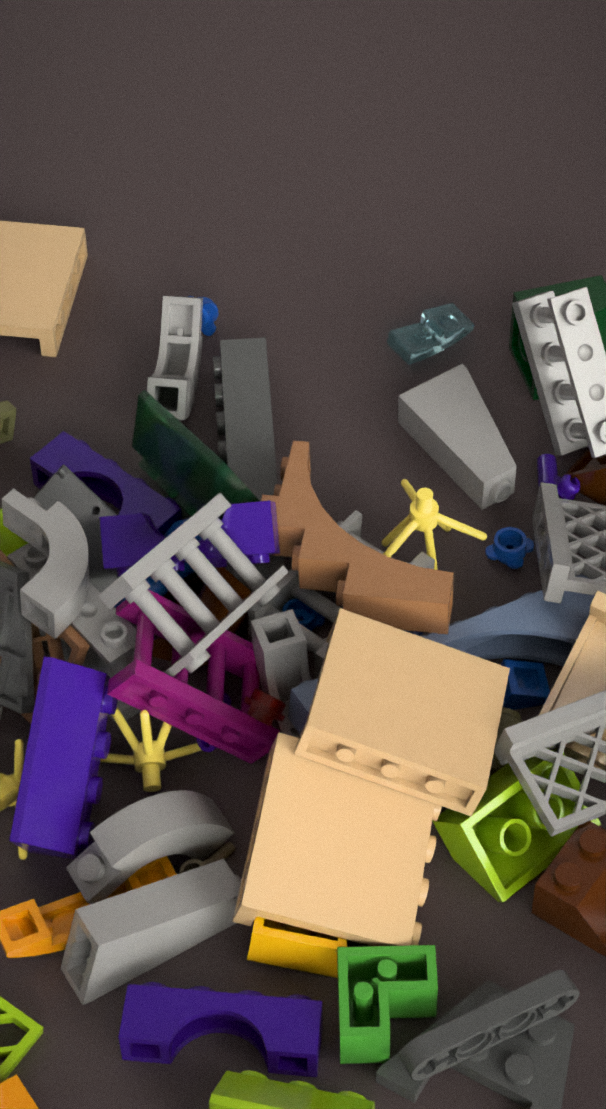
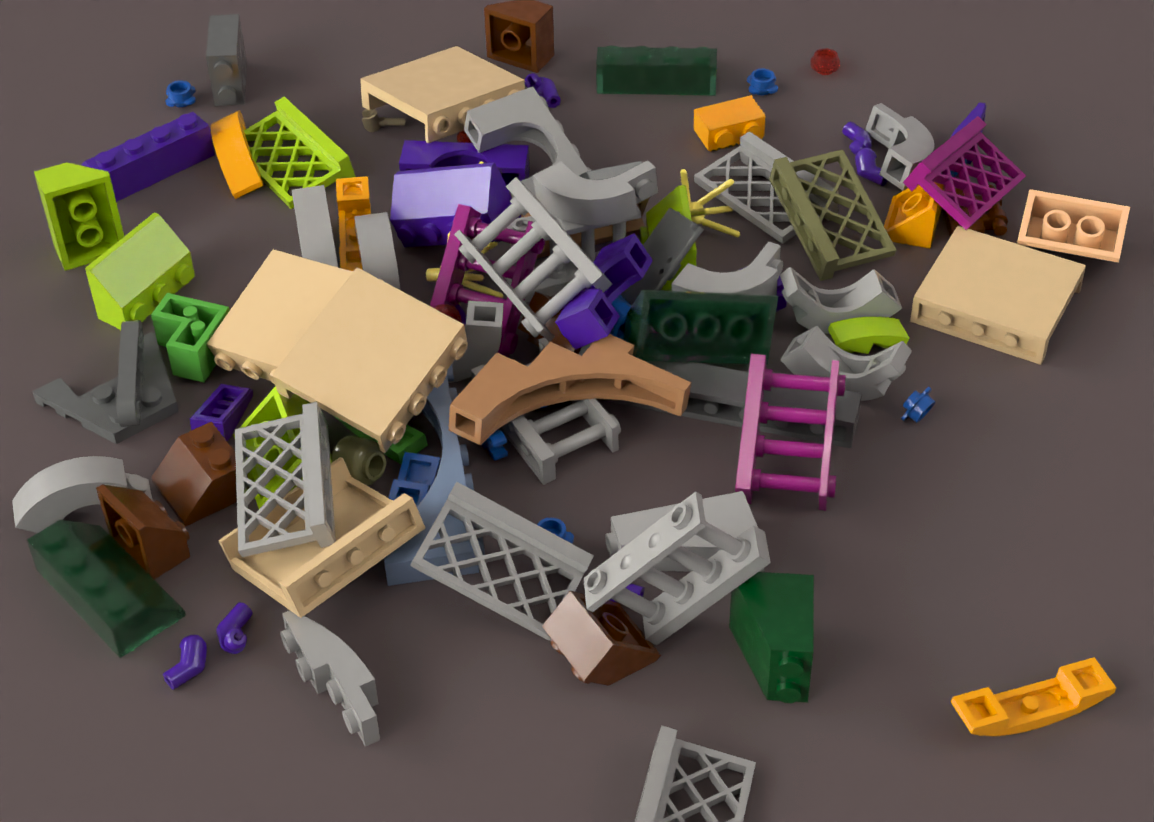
camera: 110 degrees right, 5 degrees down
(70, 389) = (820, 307): none -> light grey arch
(106, 370) = (861, 332): none -> lime slope
(111, 444) = (756, 278): none -> light grey arch
(165, 1019) = (250, 244): dark purple arch -> none
(303, 401) = (759, 412): none -> magenta fence
(424, 518) = (583, 458): light yellow plant -> none
(437, 331) = (840, 563): clear light blue slope -> none
(474, 910) = (223, 414): none -> dark purple slope
(522, 195) = (1037, 704): none -> light orange slope

